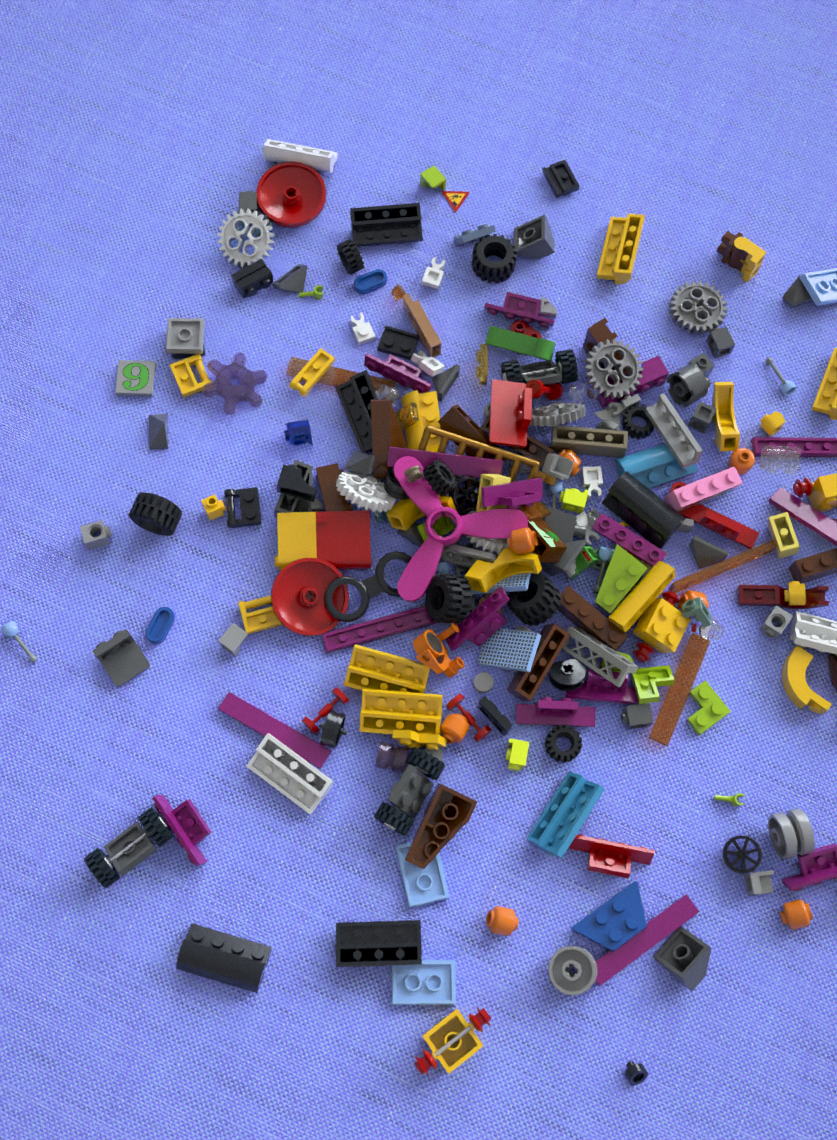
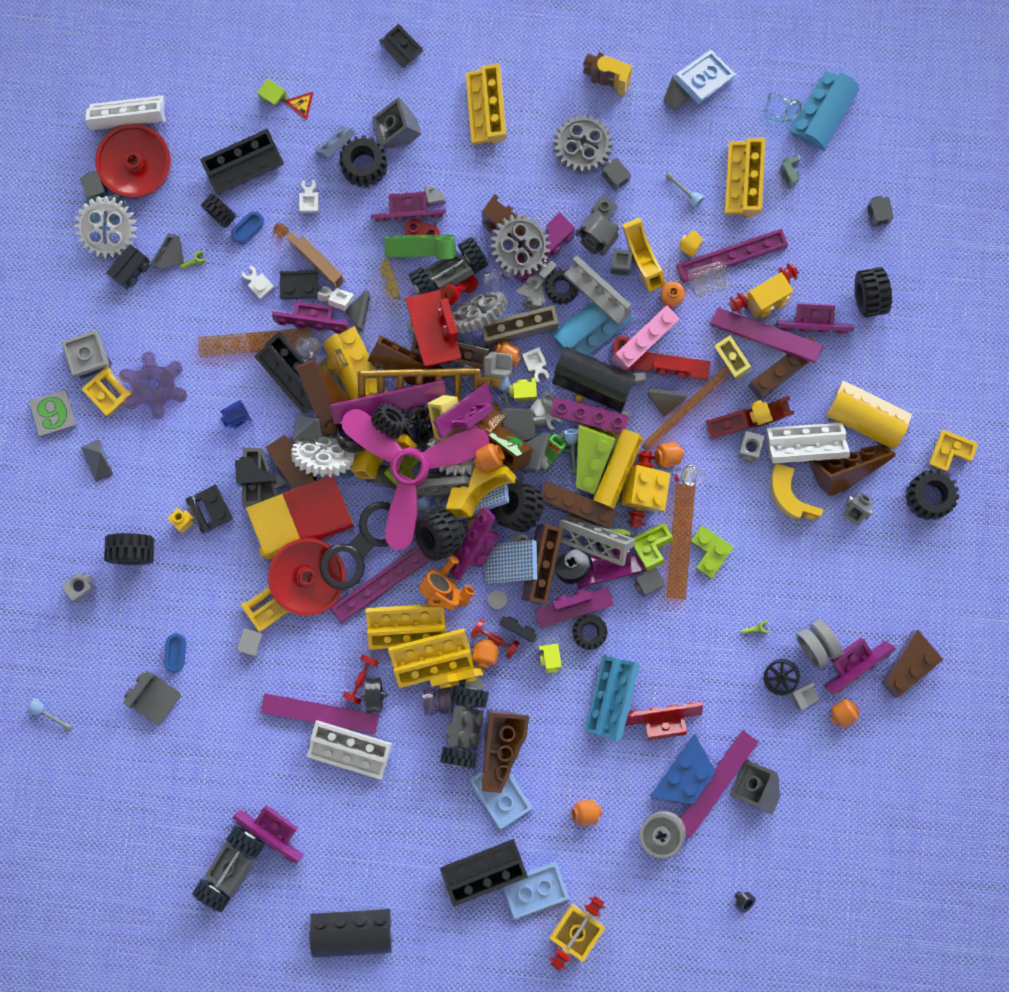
camera: 15 degrees left, 10 degrees up
(312, 372) = (225, 348): yellow plate -> none
(413, 473) = (363, 427): dark tan bush -> none
(698, 609) = (674, 462): sand green bracket -> none

